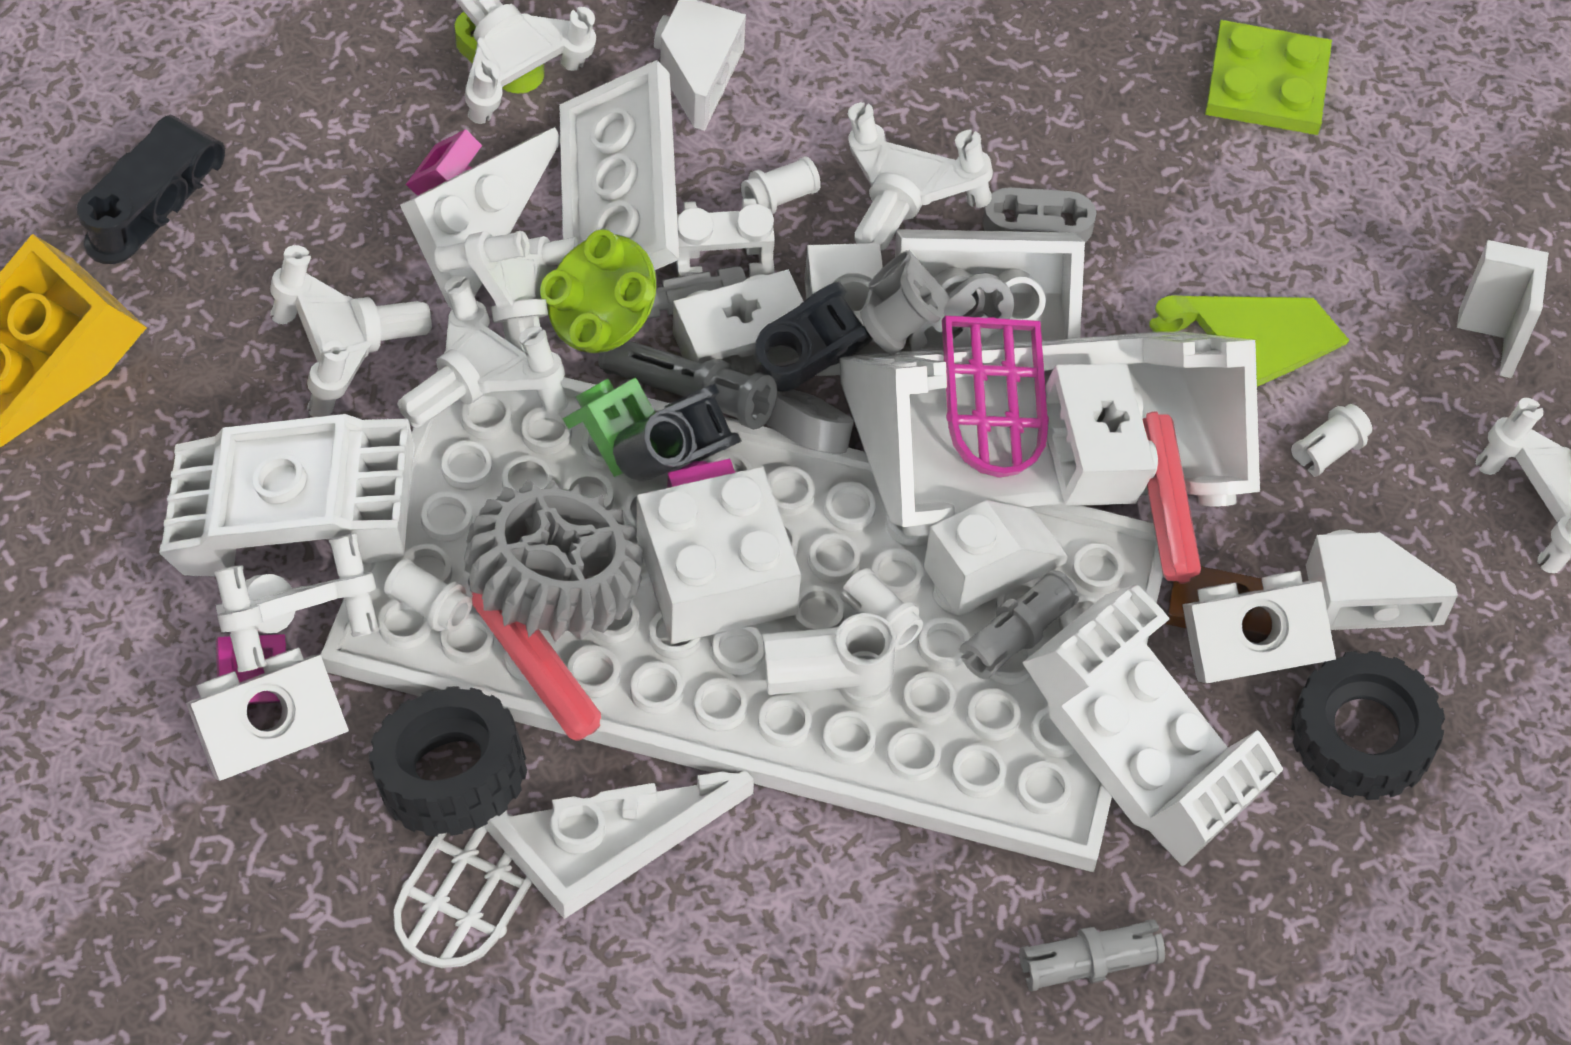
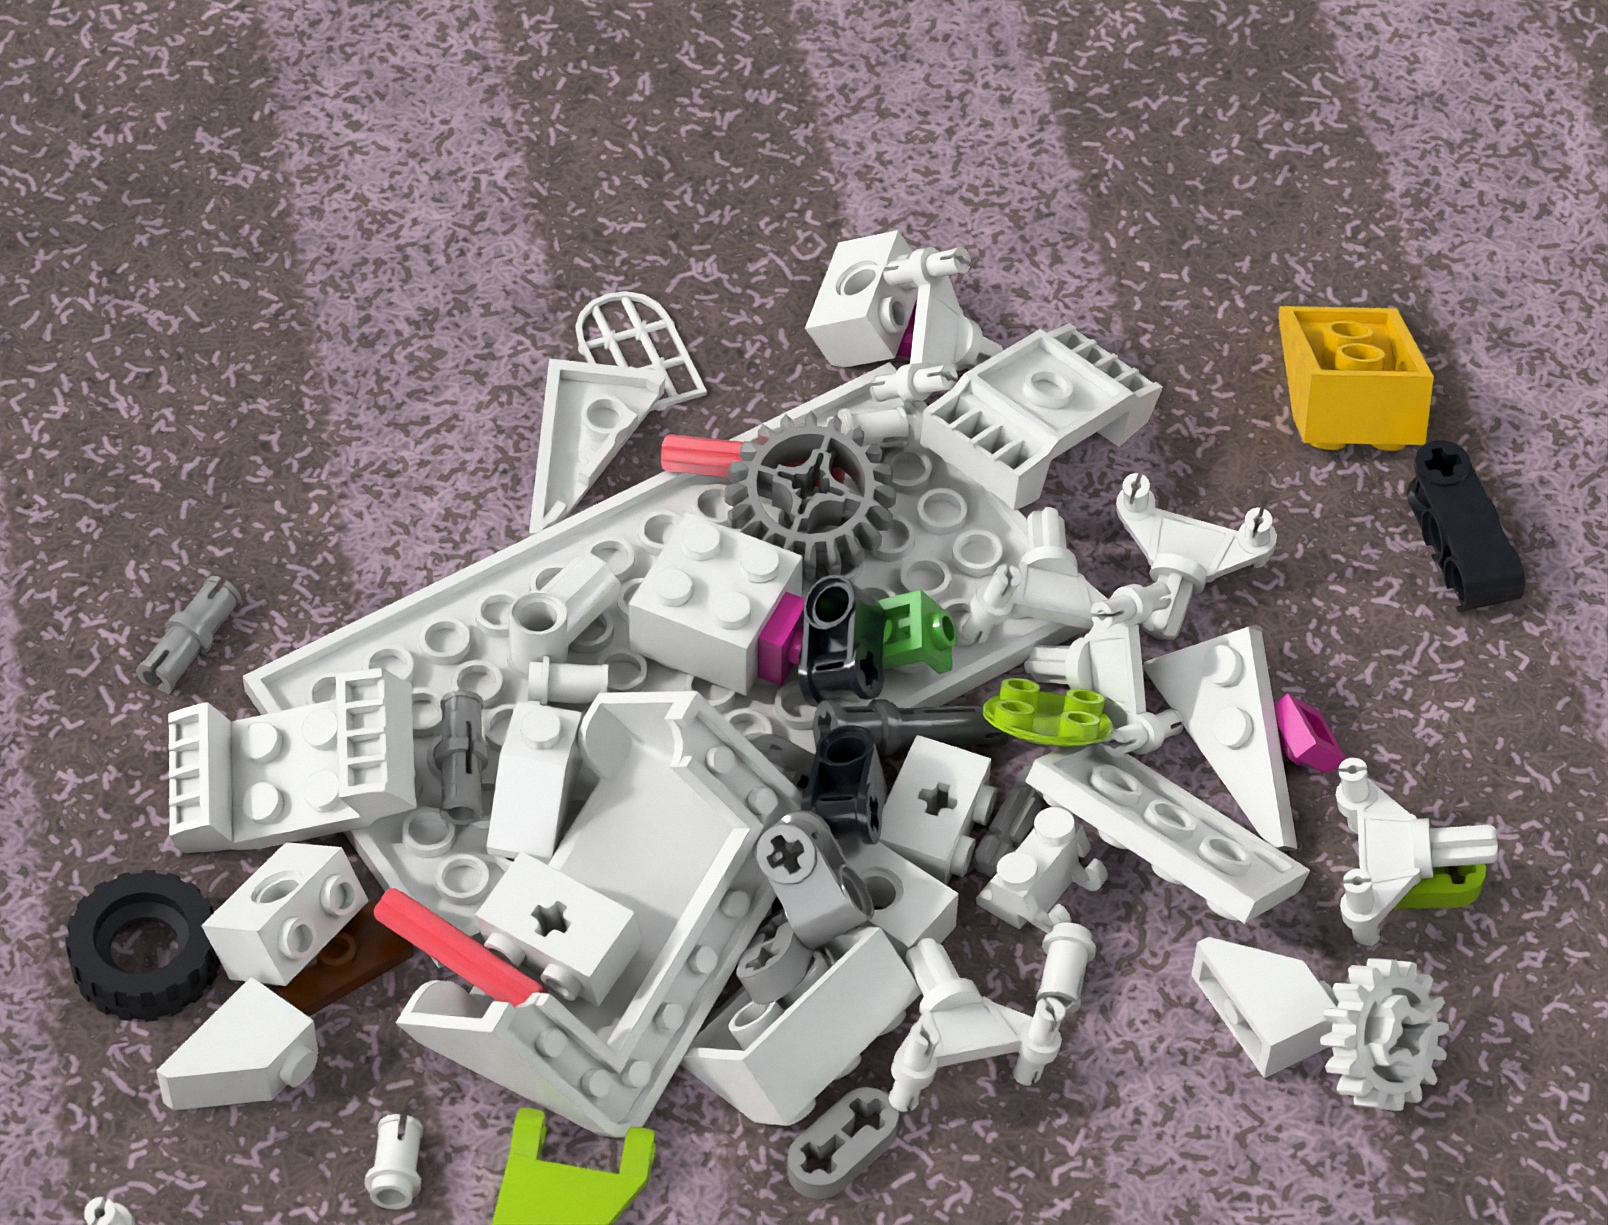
camera: 135 degrees right, 5 degrees down
(458, 801) = (737, 337): black tyre -> none
(980, 374) = (689, 875): dark pink window -> none

